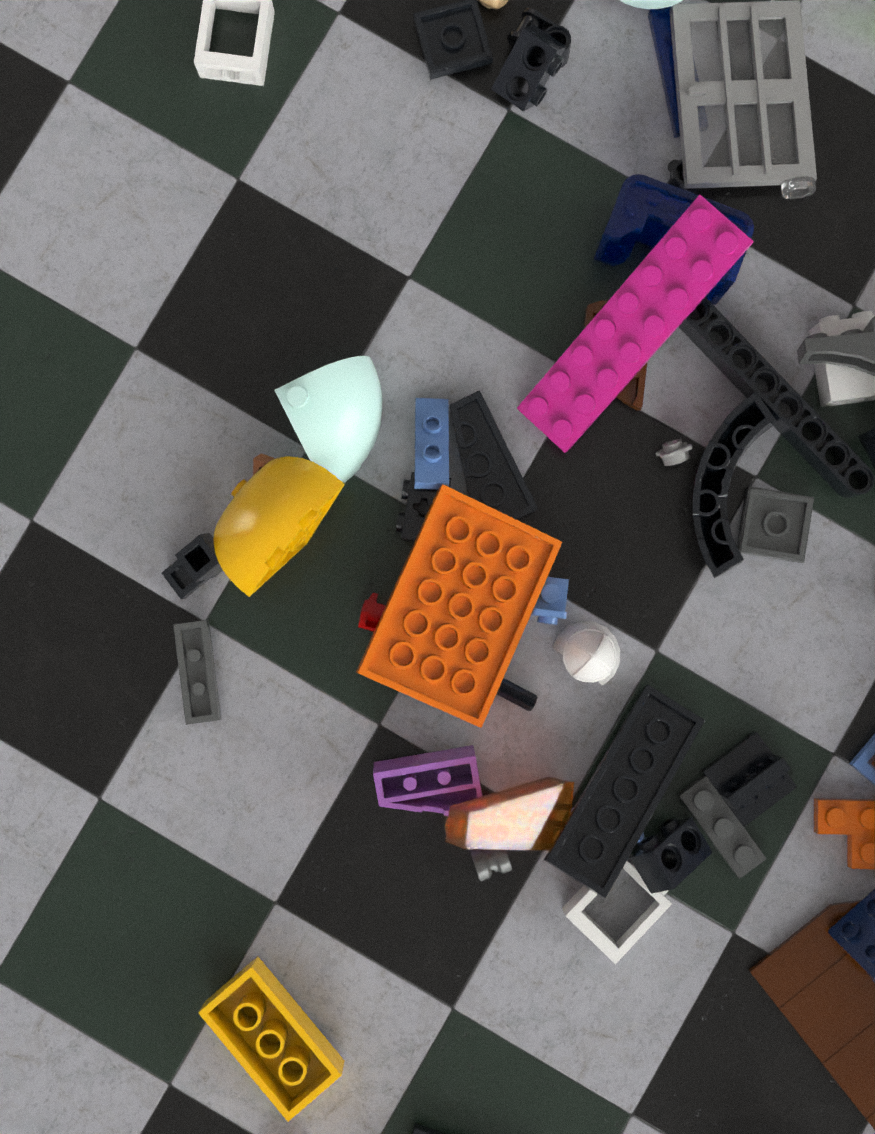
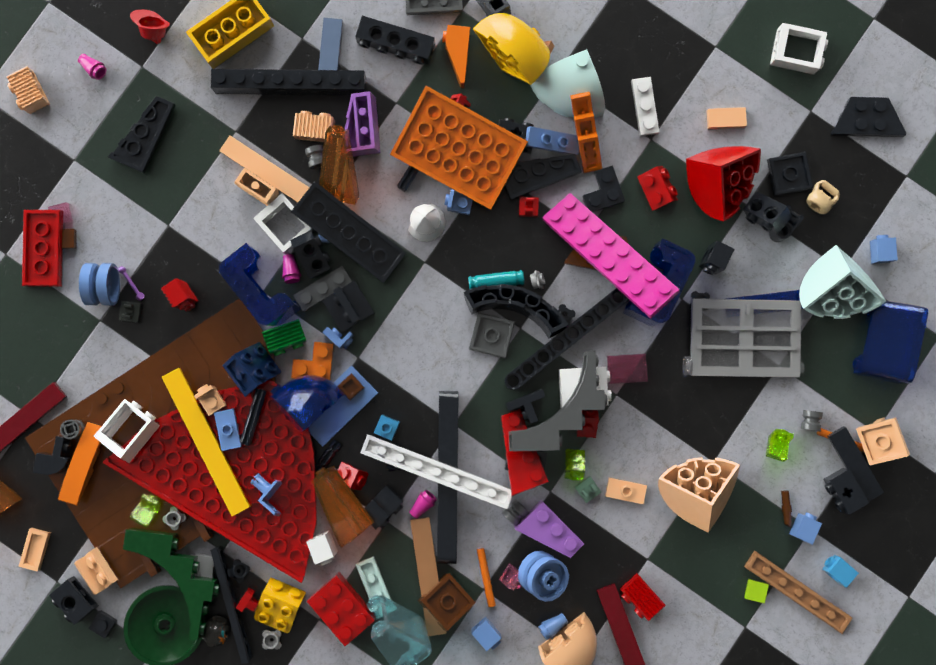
camera: 90 degrees right, 0 degrees up
(249, 784) = (370, 26): none -> black brick
(274, 623) = (457, 49): none -> orange slope
(288, 850) = (330, 44): none -> sand blue tile
(353, 291) = (645, 106): none -> white plate
(360, 923) = (288, 82): none -> black brick
(363, 151) = (726, 118): none -> light nougat tile
(412, 385) = (586, 132): none -> orange slope
(438, 870) = (311, 127): none -> light nougat brick
(474, 147) = (722, 178): none -> red brick
(495, 258) = (658, 187): none -> red bracket
(507, 341) = (609, 193): none -> black plate
(519, 949) = (264, 169): none -> light nougat tile
(545, 478) = (528, 206): none -> red tile
(558, 962) = (256, 187): none -> light nougat brick
(615, 148) = (716, 258): none -> black brick
(681, 523) = (509, 278): none -> teal axle
(696, 887) = (290, 269): none -> dark pink cone
(720, 405) = (569, 313): none -> black plate
(753, 953) = (238, 273): none -> clear blue windscreen
(767, 1084) = (180, 295): none -> red brick
(809, 289) = (627, 368): none -> clear pink plate
(809, 797) = (334, 335): none -> medium blue bracket
(819, 888) = (284, 337): none -> green brick

